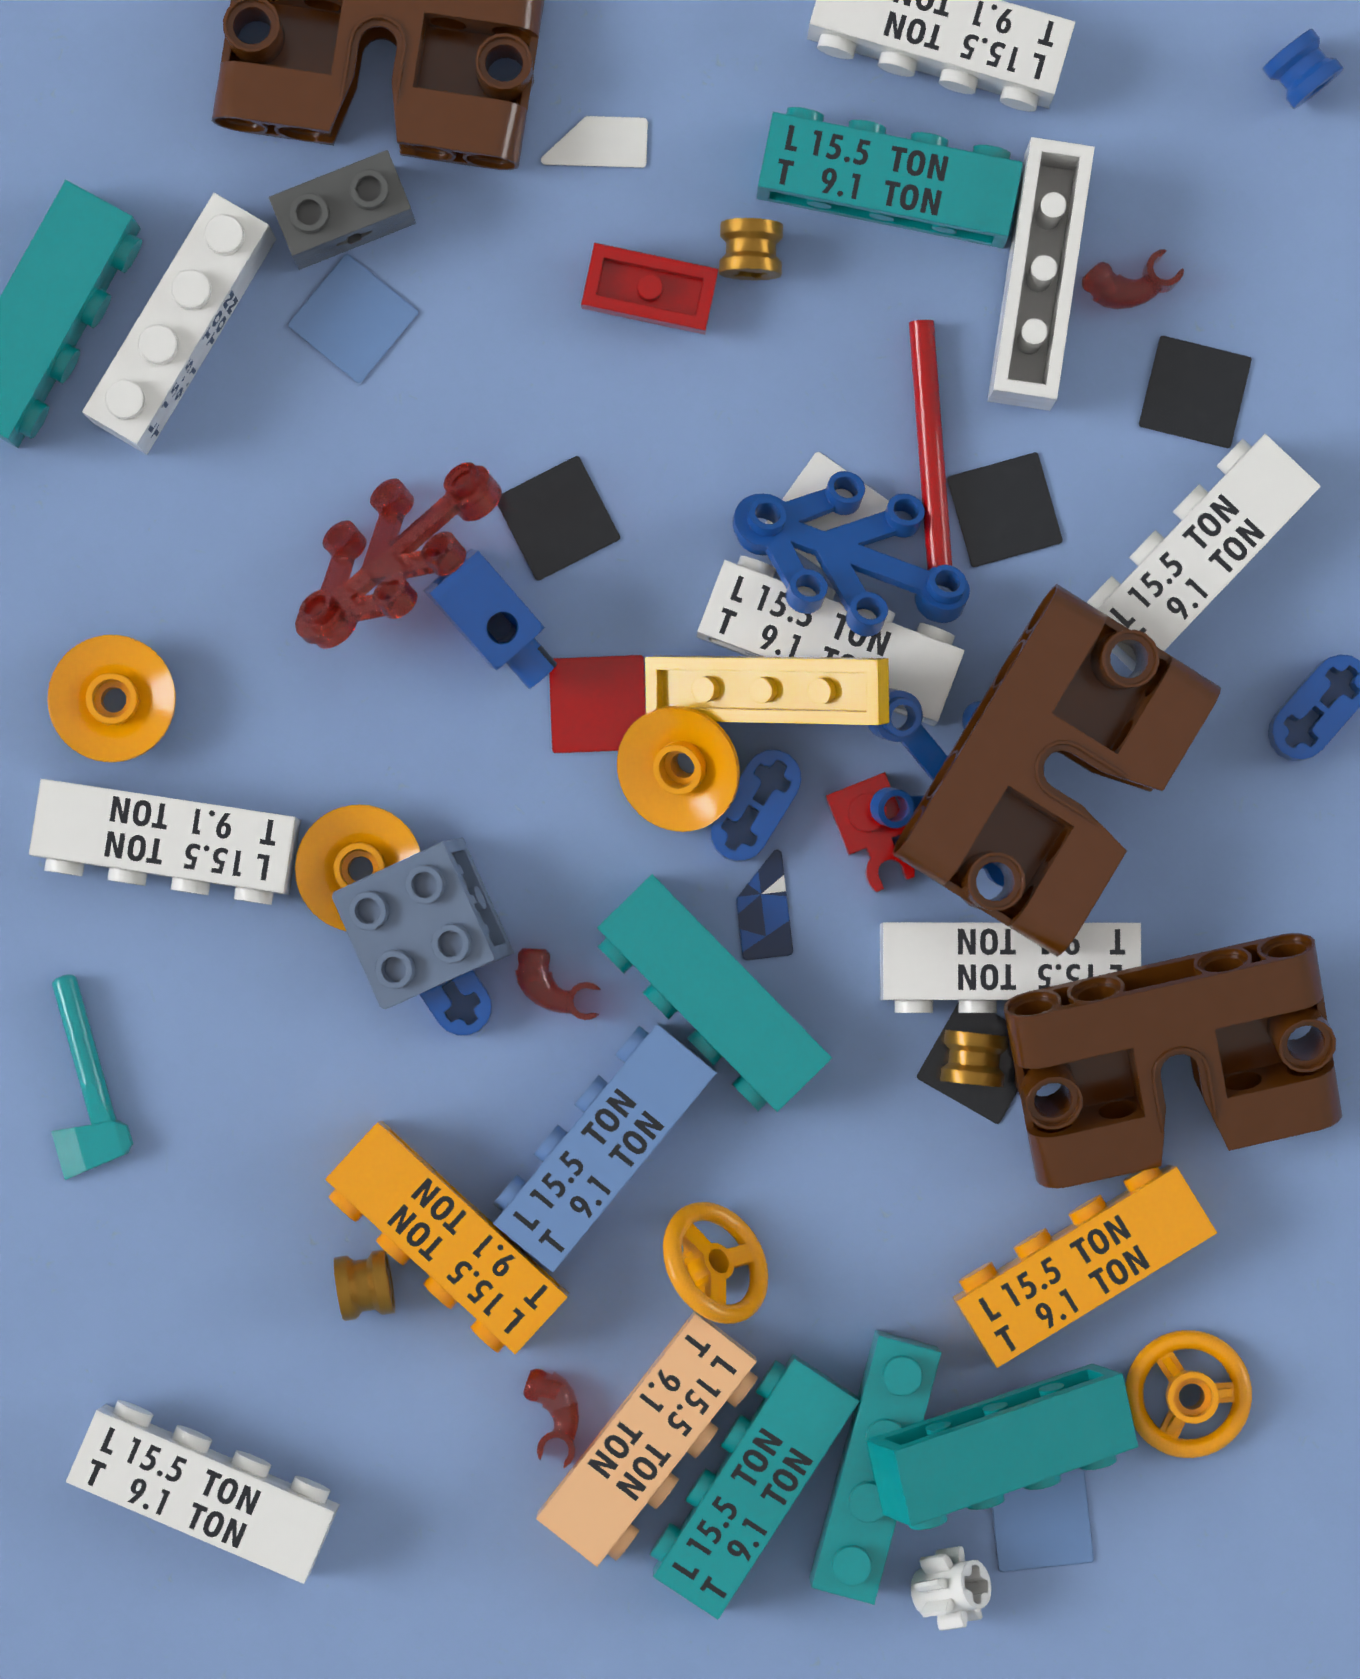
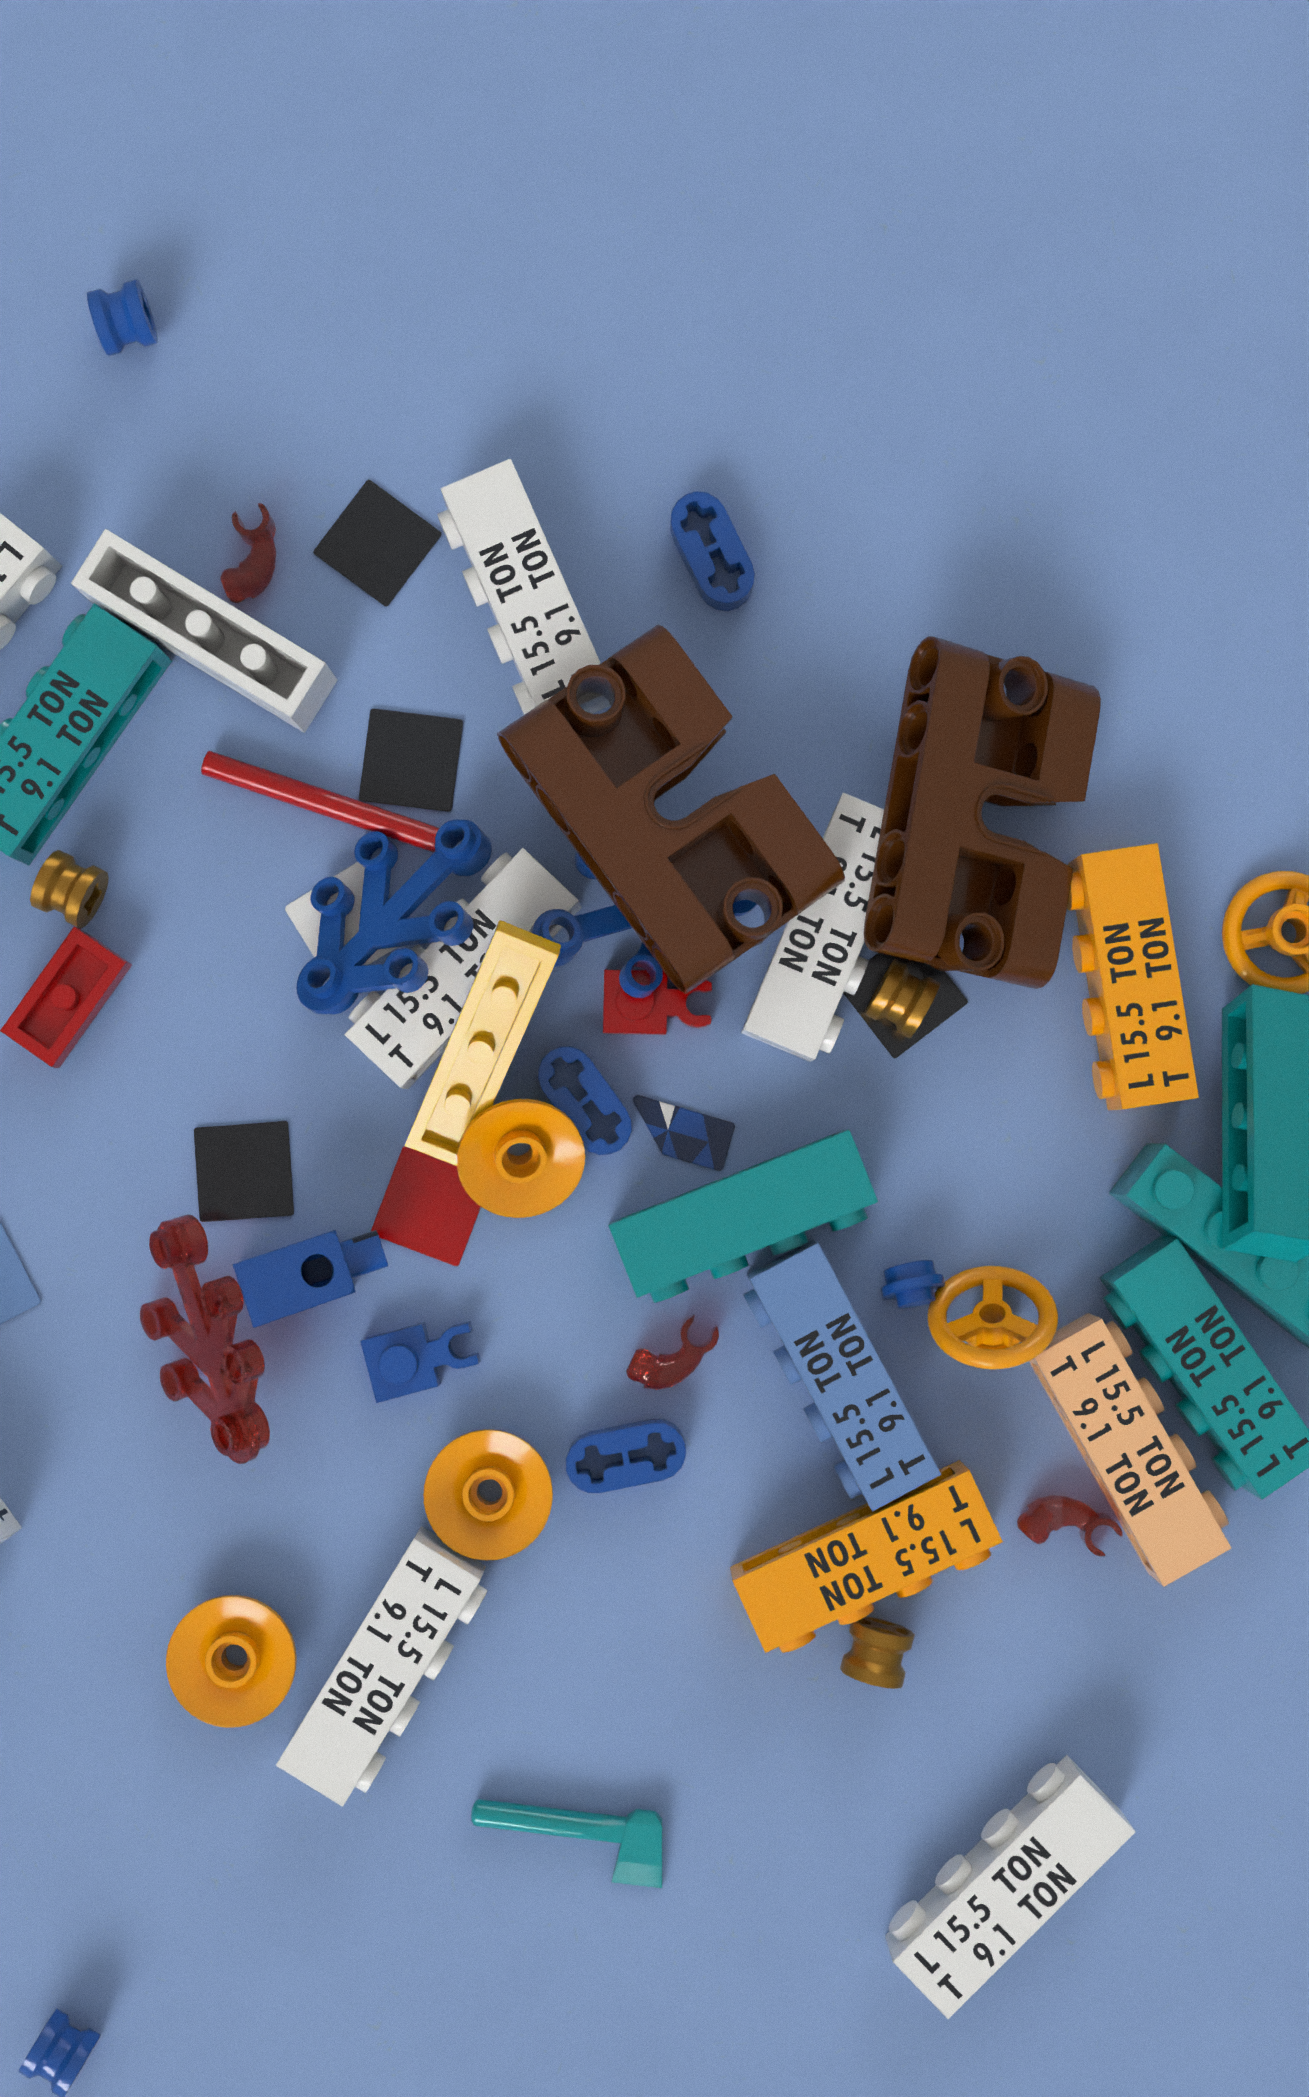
camera: 65 degrees left, 0 degrees up
(421, 922) = (563, 1456): sand blue bracket -> none
(447, 743) = (408, 1361): none -> blue plate
(714, 1177) = (912, 1283): none -> blue plate

